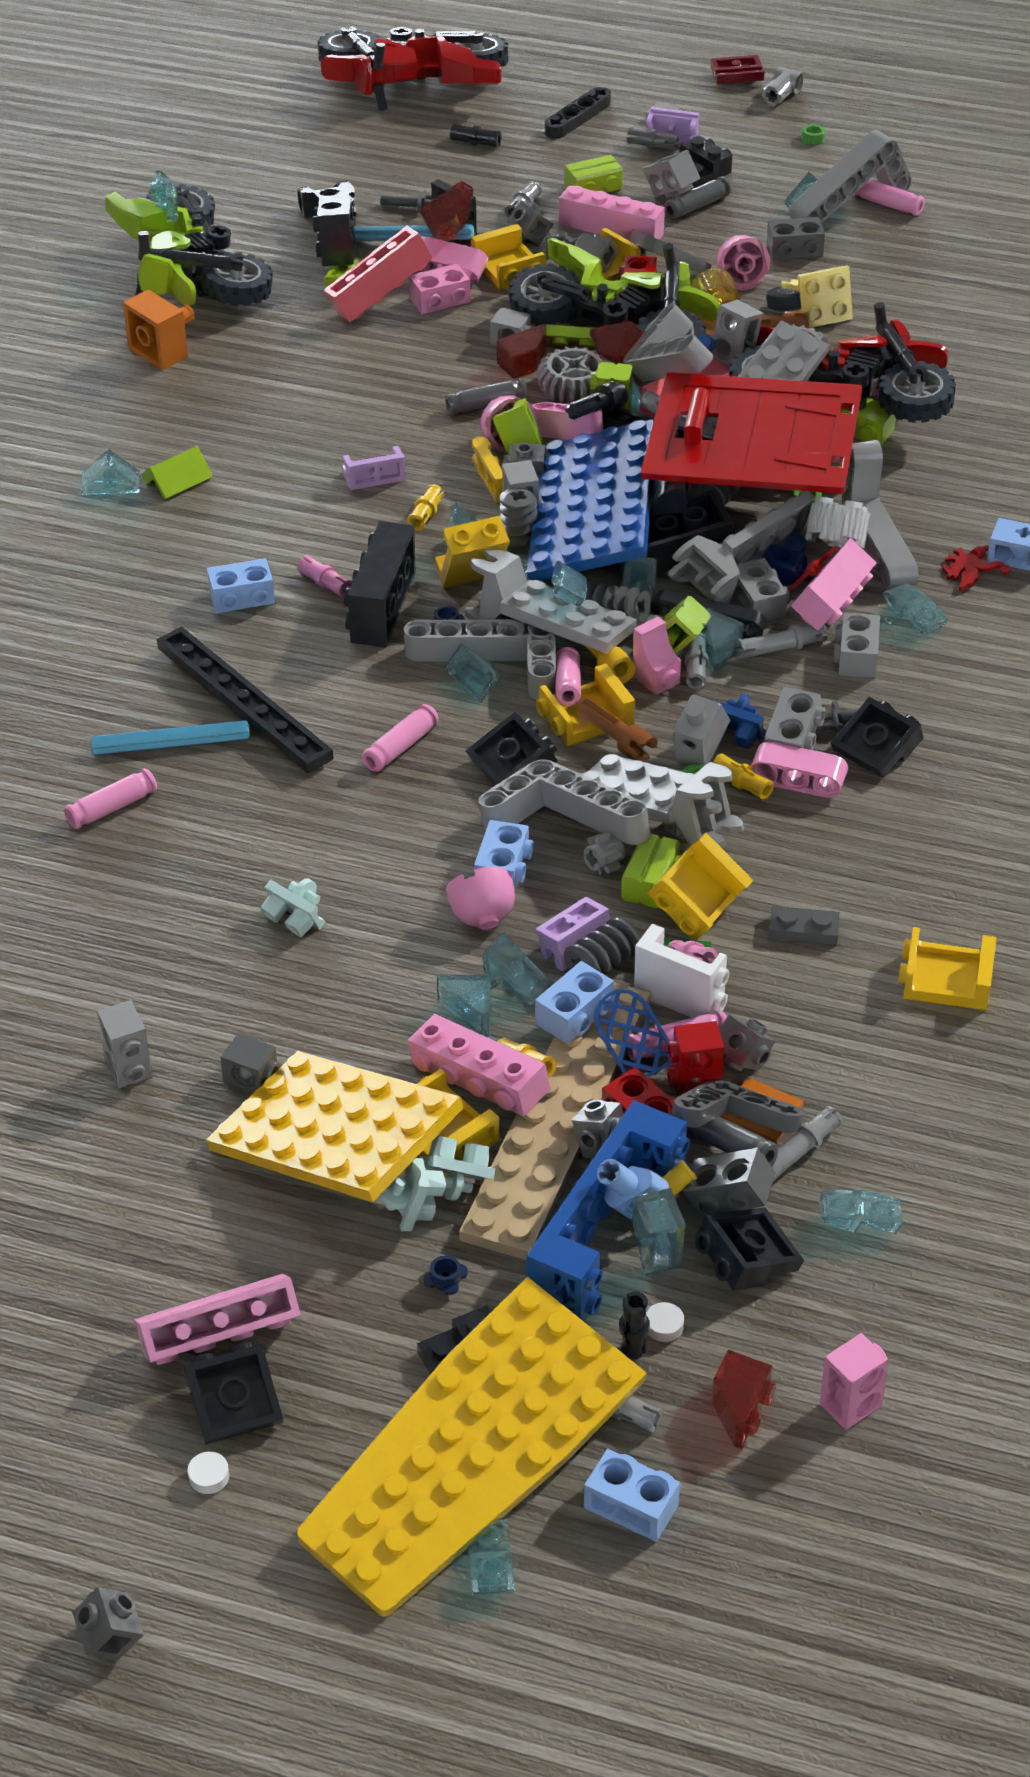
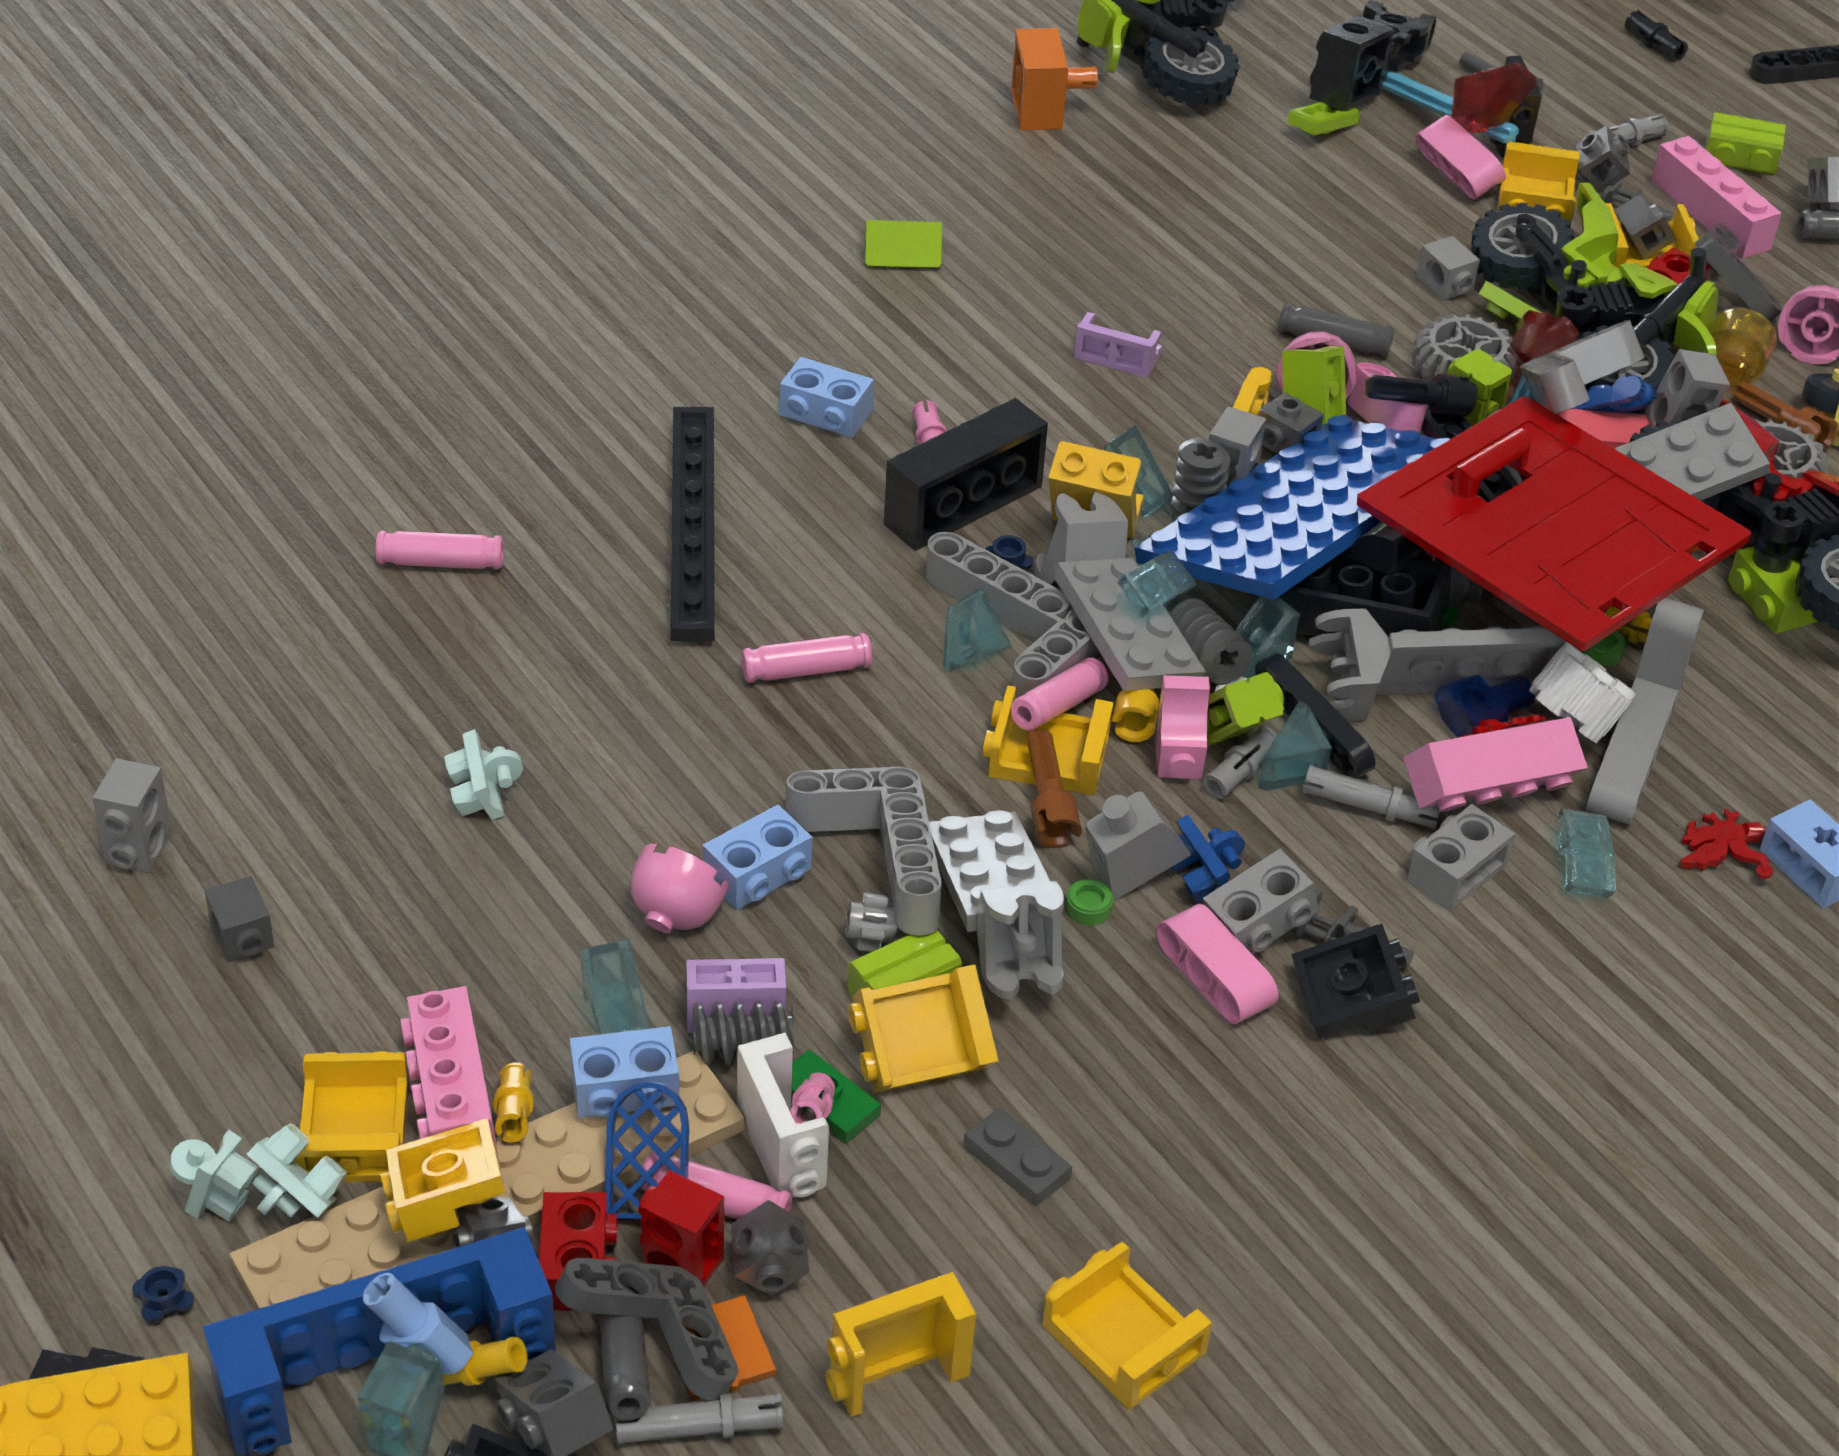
camera: 35 degrees right, 0 degrees up
(110, 475) = (832, 213): clear light blue slope -> none
(170, 737) = (576, 521): medium azure axle -> none
(335, 1125) = (222, 1043): yellow plate -> none
(378, 274) = (1344, 131): coral brick -> none
(425, 507) = (1125, 416): yellow pin -> none
(439, 288) = (1415, 184): bright pink brick -> none
(467, 998) = (543, 999): clear light blue slope -> none
(510, 748) = (909, 737): black plate -> none
(522, 351) = (1434, 295): clear red slope -> none
(552, 1110) = (439, 1175): none -> yellow plate
(745, 777) = (1141, 931): yellow pin -> none
(761, 589) = (1408, 718): light grey brick -> none
(870, 1024) = (899, 1334): none -> yellow panel

